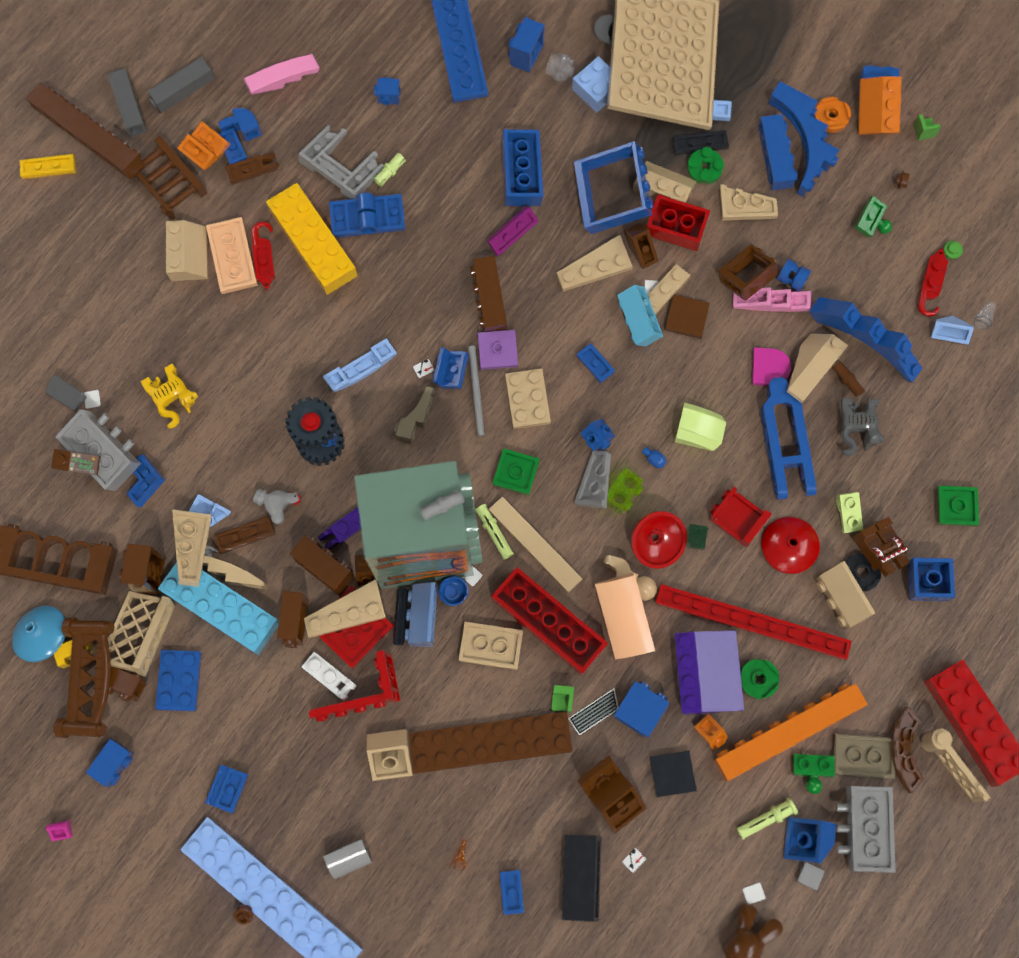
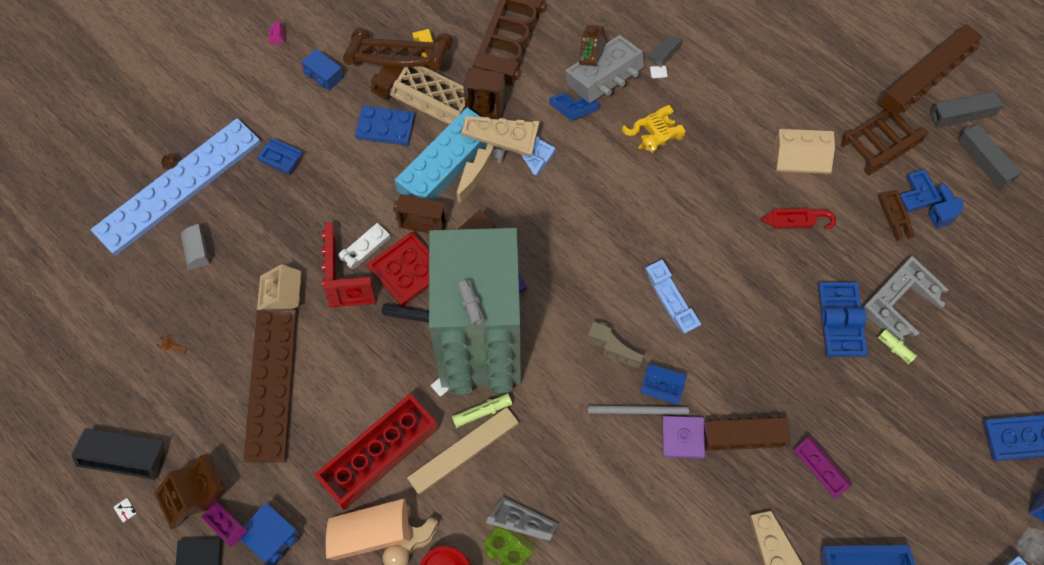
camera: 95 degrees right, 10 degrees down
(38, 634) = (444, 19): dark azure dish -> none
(47, 166) = (895, 45): yellow tile -> none
(204, 146) = (918, 170): orange slope -> none
(231, 255) = (799, 190): light nougat plate -> none
(244, 535) = (512, 186): reddish brown tile -> none
(276, 502) = (538, 211): light grey animal -> none
(281, 73) = (1008, 250): bright pink slope -> none
(312, 238) = (815, 263): yellow brick -> none
(315, 431) = (599, 236): black plate -> none
(349, 611) = (416, 260): tan wing -> none
(387, 91) = (992, 352): blue brick -> none
(422, 615) = (402, 331): medium blue slope -> none
(423, 368) = (668, 360): white sticker -> none
(453, 590) = (424, 362): blue hair -> none
(490, 645) = (364, 393): tan plate -> none
(511, 892) = (125, 387): blue plate -> none
(516, 472) = (543, 439): green plate -> none
(521, 167) = (901, 485): blue brick -> none
(527, 398) = (625, 462): tan plate -> none
(562, 698) = (298, 458): bright green panel -> none
(595, 363) = (659, 540): blue plate -> none
(595, 712) = (279, 491): sticker -> none
(598, 435) = (573, 529): blue brick -> none
(639, 751) = (223, 524): none -> magenta plate

